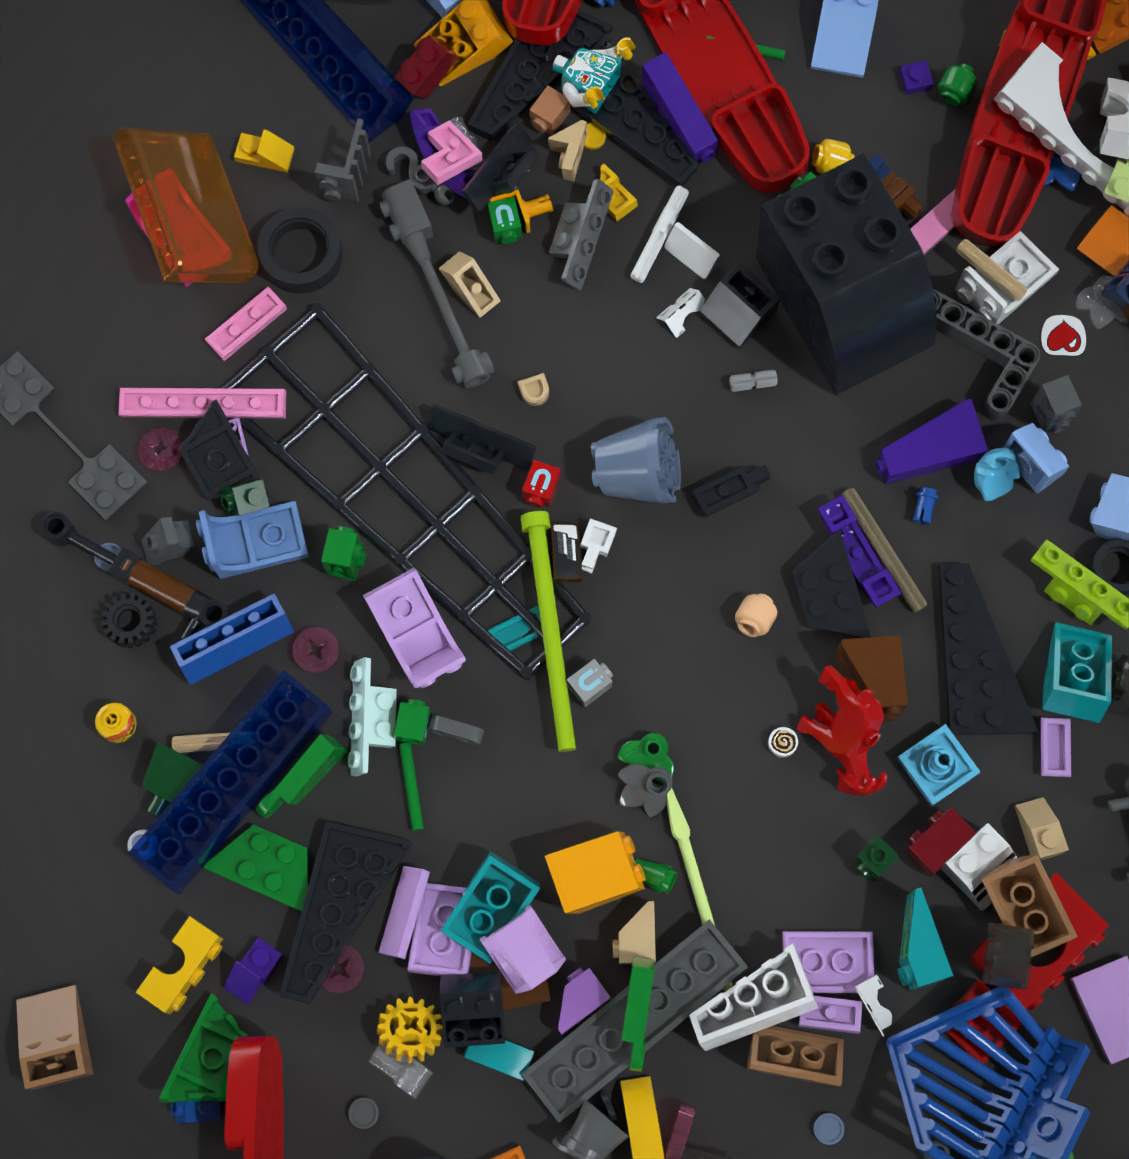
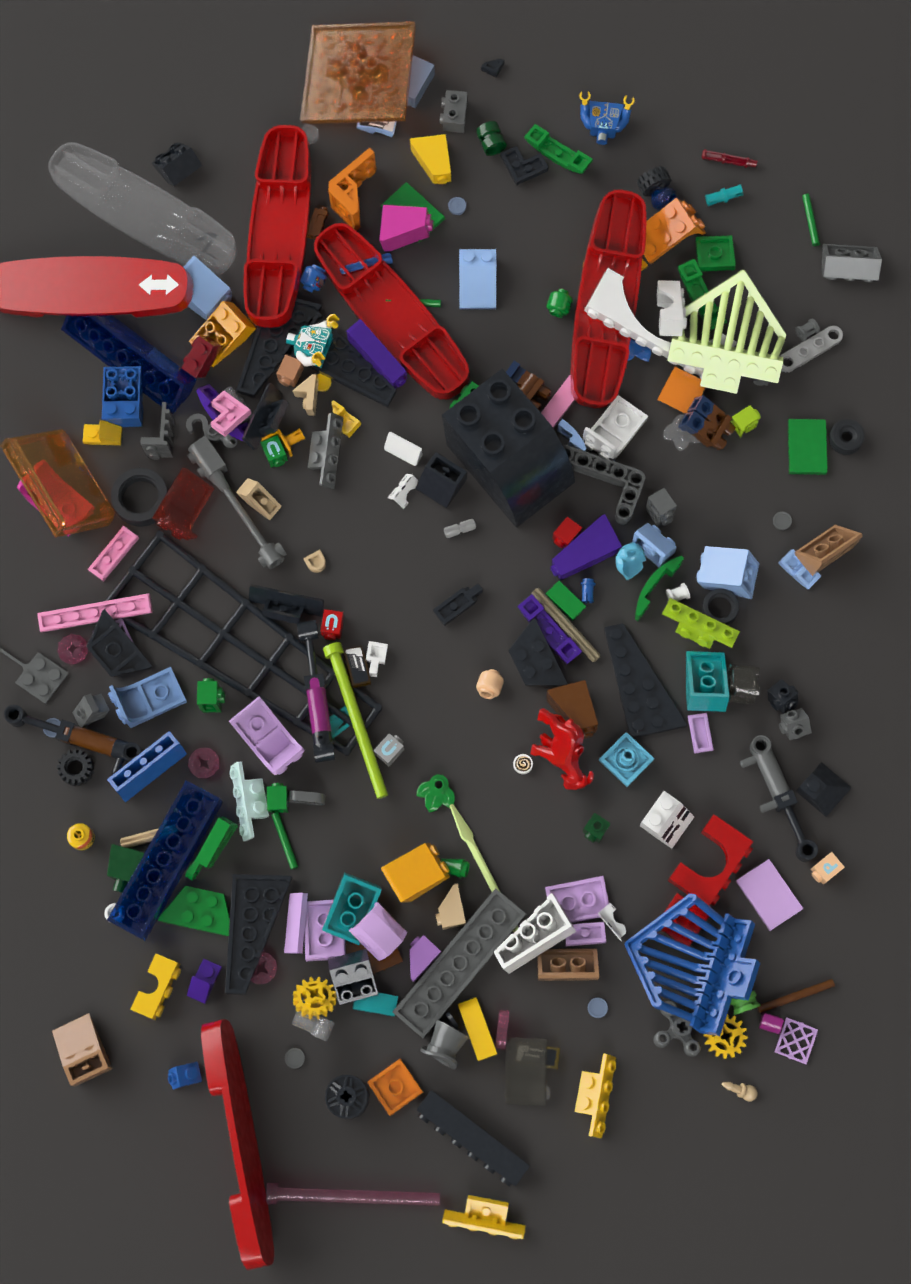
camera: 10 degrees left, 0 degrees up
(204, 1061) = (185, 1044): green wing -> none
(244, 498) = (136, 671): bracket -> none
(303, 103) = (122, 396): none -> blue slope
(359, 272) = (183, 505): none -> clear red bracket
(498, 586) = (316, 697): none -> black piece
(637, 1008) = (458, 947): green piece -> none
(638, 463) = (394, 598): sand blue cone -> none
(641, 789) = (436, 813): dark grey plate -> none
(659, 234) = (379, 441): white axle -> none
(830, 155) = (484, 367): yellow head -> none
(889, 514) = (565, 600): none -> green tile
(909, 416) = (566, 533): none -> red brick
(916, 77) = (531, 302): dark purple plate -> none
(921, 949) = (637, 885): teal slope -> none
(940, 841) = (635, 809): dark red brick -> none
(942, 276) = (569, 432): none -> light blue slope
(991, 270) = (603, 425): tan axle -> none
(1008, 956) = (690, 873): clear smoke brick -> none
(1028, 900) = (698, 839): medium nougat slope -> none
(1041, 829) = (700, 788): tan slope -> none
(1049, 496) = (668, 568): none -> green slope
(1059, 535) = (678, 593): none -> white bush
(1063, 336) = (659, 459): sticker -> none

